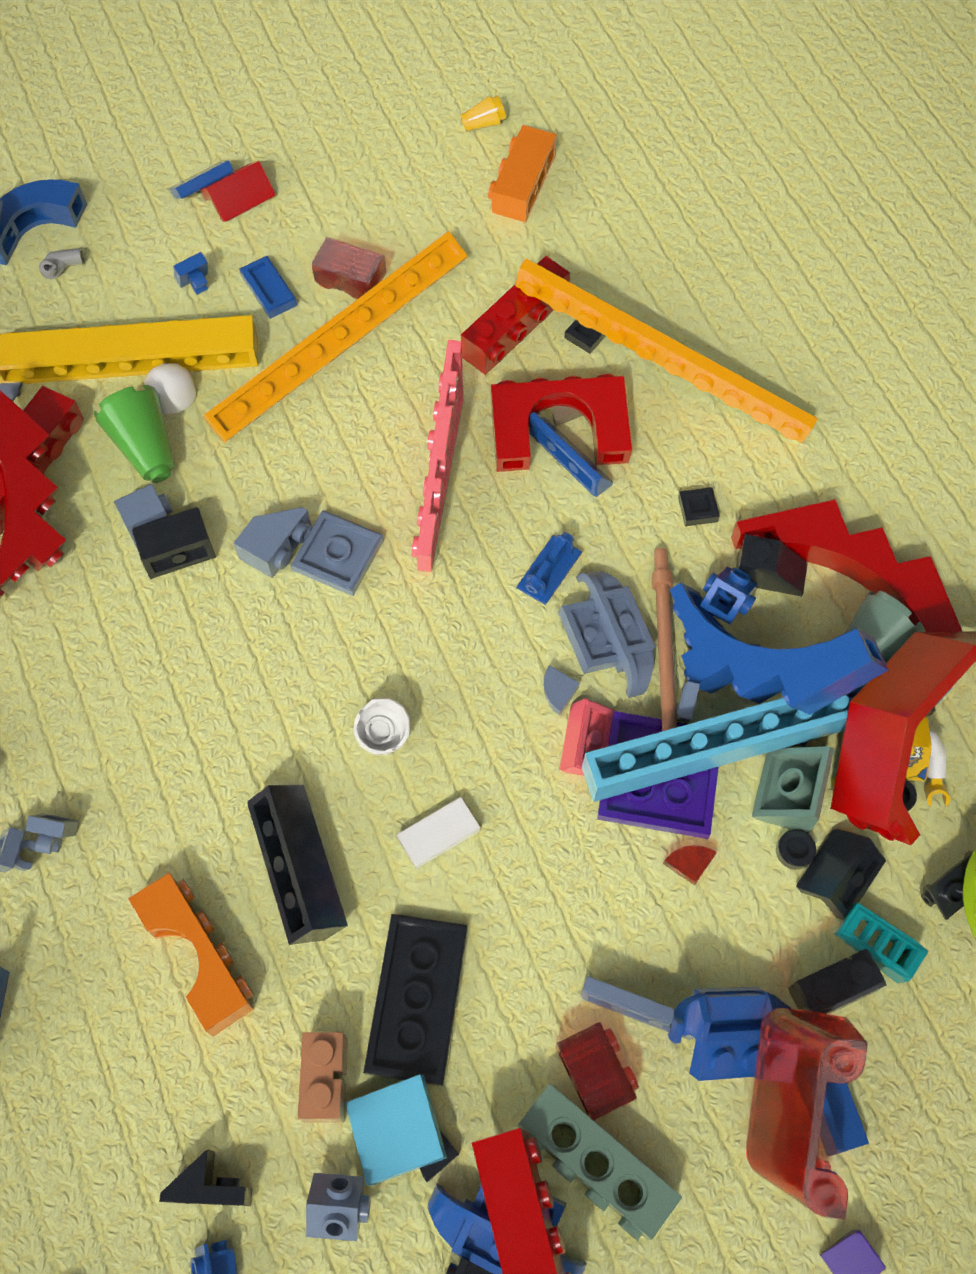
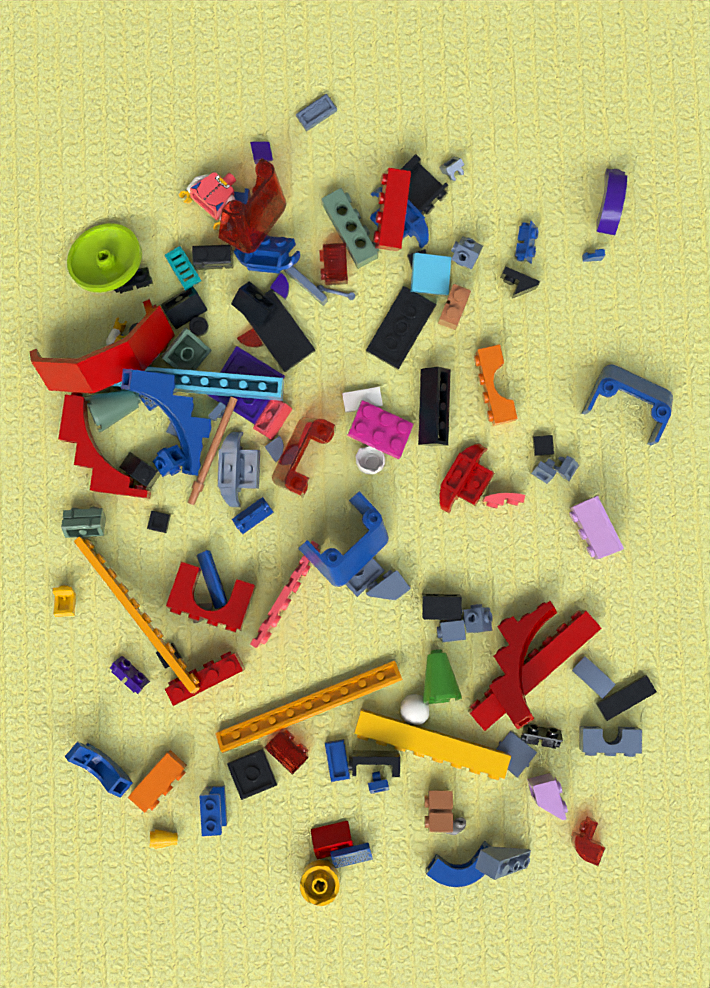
camera: 155 degrees left, 20 degrees up
(68, 878) = (543, 445): none -> black tile
(83, 266) = (439, 811): none -> nougat piece
(103, 540) = (477, 619): none -> sand blue brick
(126, 749) = (498, 499): none -> coral slope
(196, 764) = (465, 478): none -> red plate
(207, 292) = (373, 757): none -> black panel
(234, 130) = (313, 891): none -> yellow brick
(326, 598) = (341, 568): none -> blue windscreen
(383, 785) = (380, 429): none -> dark pink plate
(390, 229) = (252, 774): none -> black tile
(431, 162) = (213, 810): none -> blue panel
(507, 637) = (285, 471): none -> clear red windscreen
(539, 1023) = (351, 296): none -> sand blue hinge
(612, 164) = (101, 766): none -> blue arch
(632, 287) = (123, 668): none -> dark purple hinge
(648, 899) = (283, 336): none -> black tile
(679, 983) = (281, 286): none -> dark purple tile
(715, 926) = (253, 303): none -> black panel
(783, 341) = (64, 601): none -> yellow bracket
(816, 455) = (83, 522): none -> sand green brick
(902, 1114) = (210, 193): none -> coral torso

